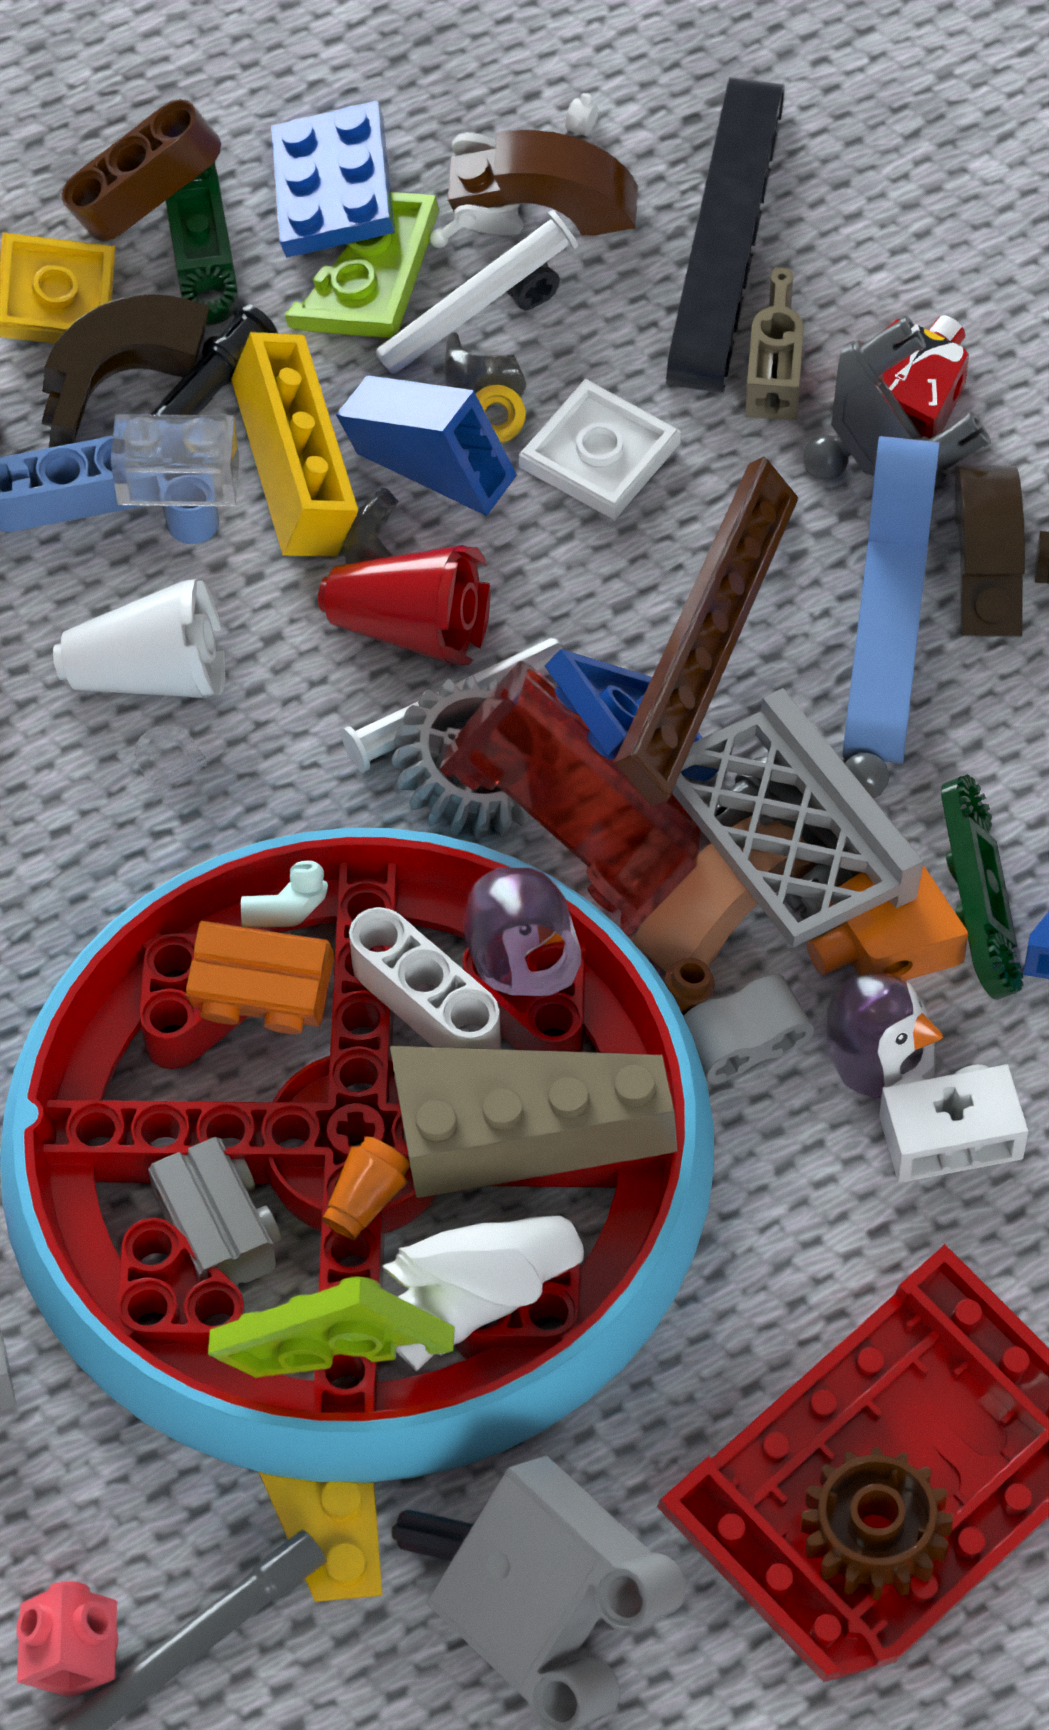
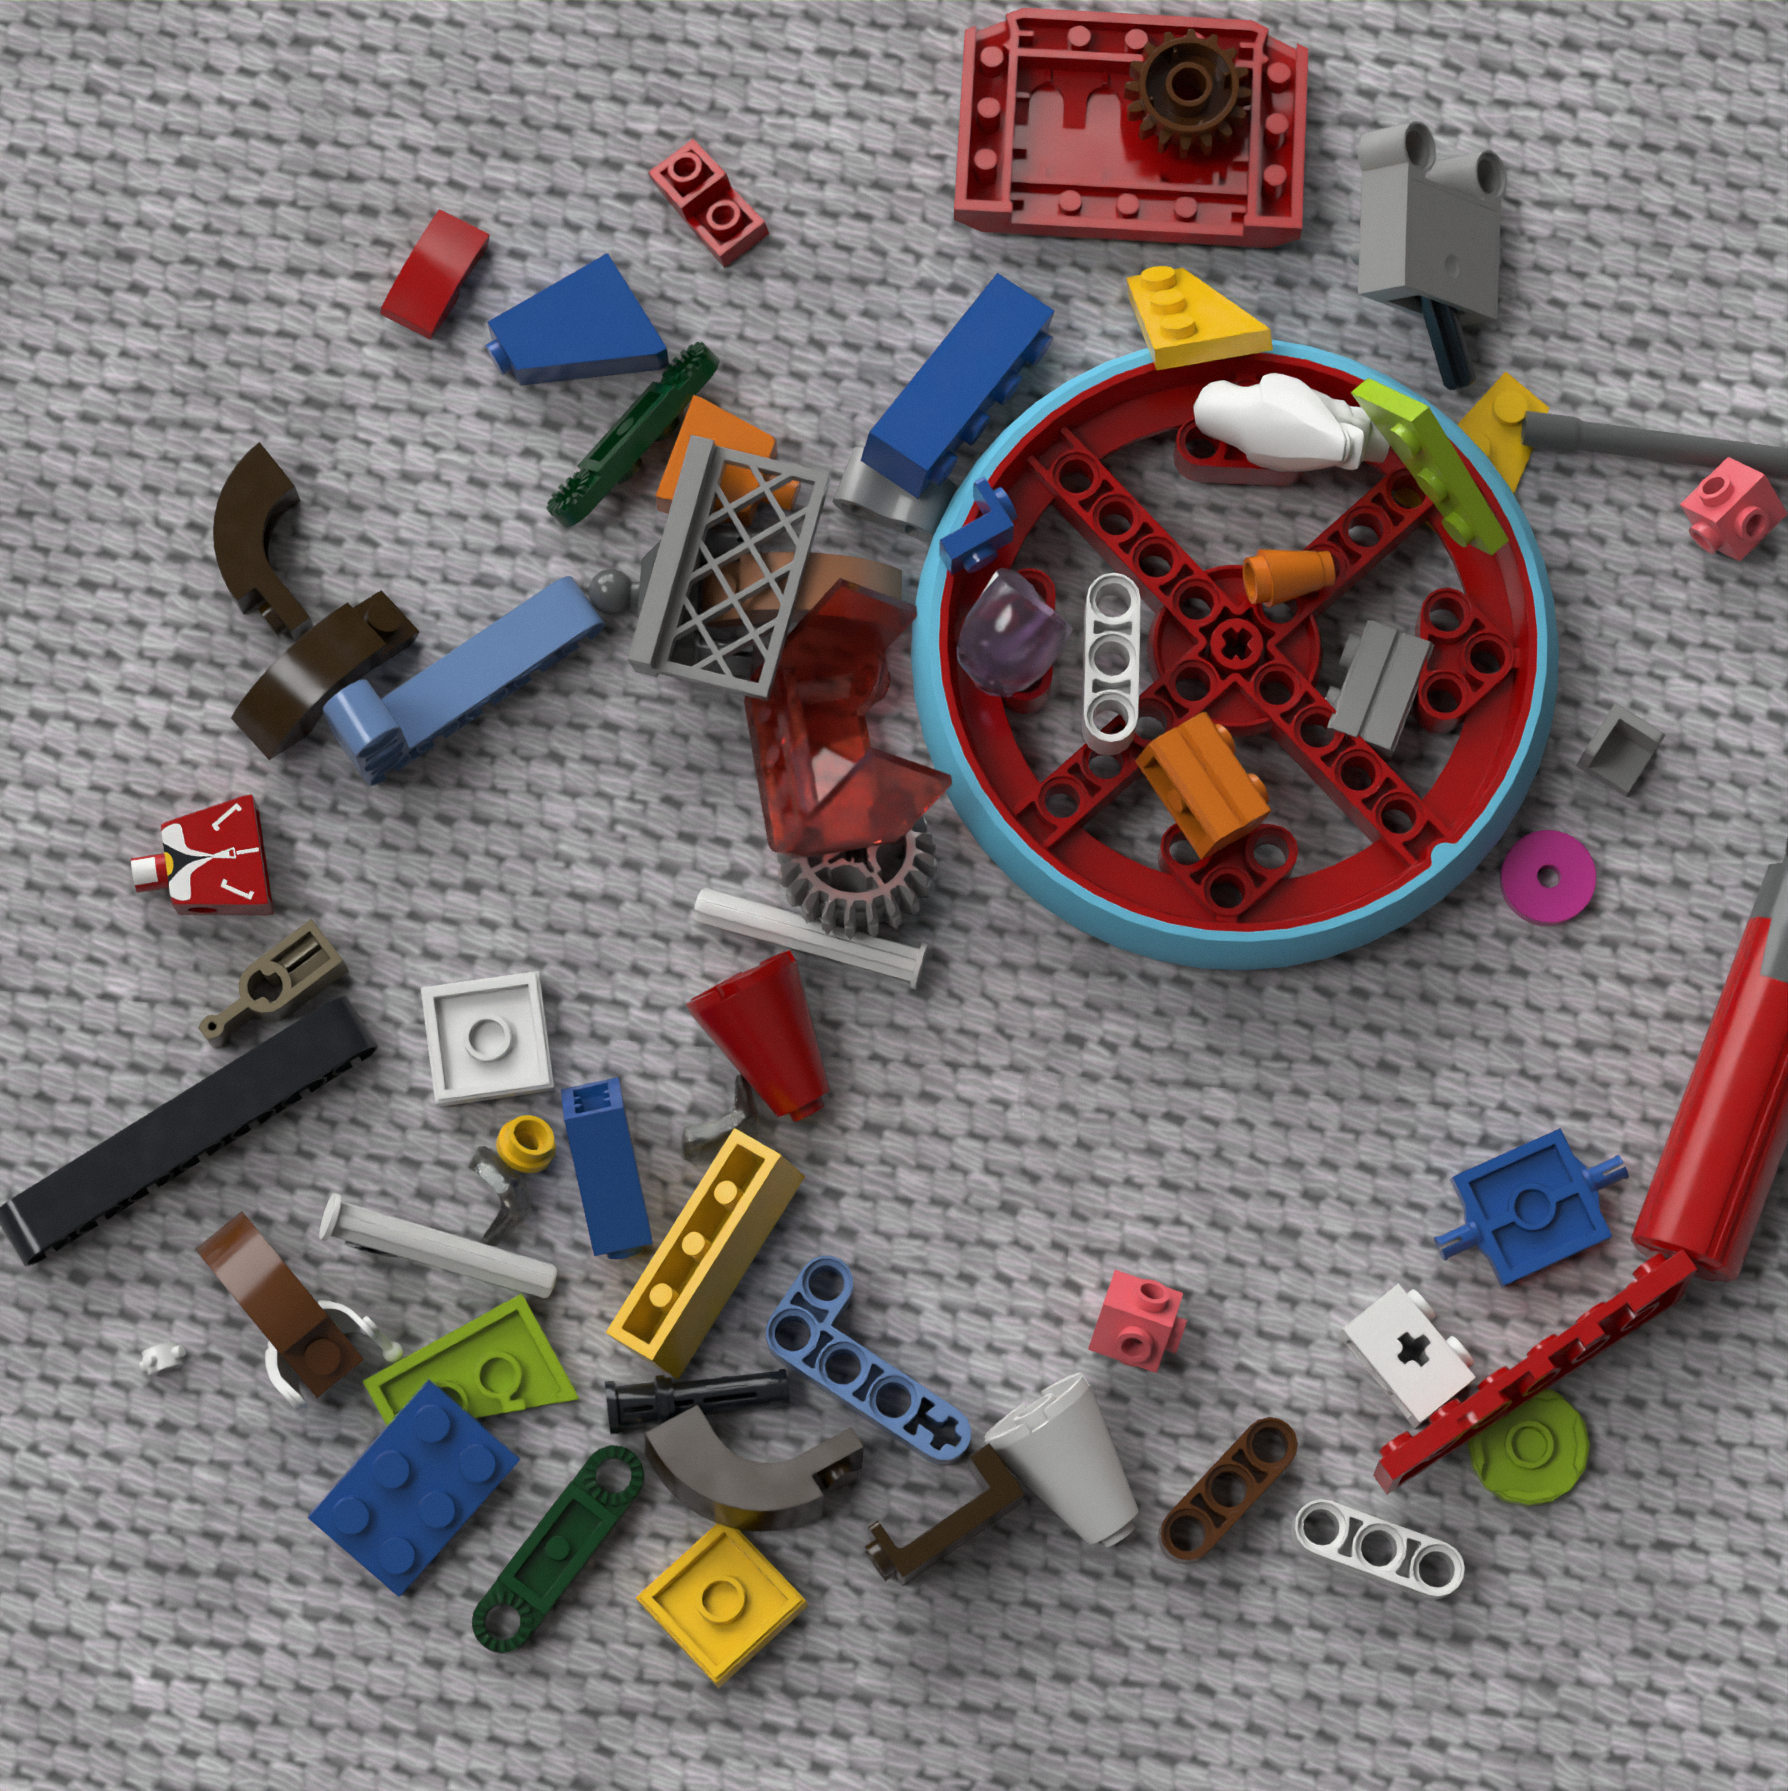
camera: 135 degrees left, 20 degrees up
(141, 170) = (581, 1643): reddish brown beam -> none
(148, 646) = (985, 1185): white cone -> none
(175, 460) = (825, 1292): clear brick -> none
(291, 904) = (1127, 824): light aqua arm -> none
(527, 1113) = (1146, 511): dark tan wedge -> none
(605, 701) = (733, 761): blue plate -> none
(627, 1004) = (977, 542): none -> blue bracket
(663, 1322) = (1190, 320): none -> yellow wing
(689, 983) = (908, 546): reddish brown pin -> none
(706, 633) = (609, 770): reddish brown tile -> none
(784, 1124) = (958, 387): none -> blue brick
(868, 409) = (295, 825): dark grey connector -> none
(874, 1028) = (821, 395): clear purple piece -> none
(984, 1129) = (828, 271): white brick -> none

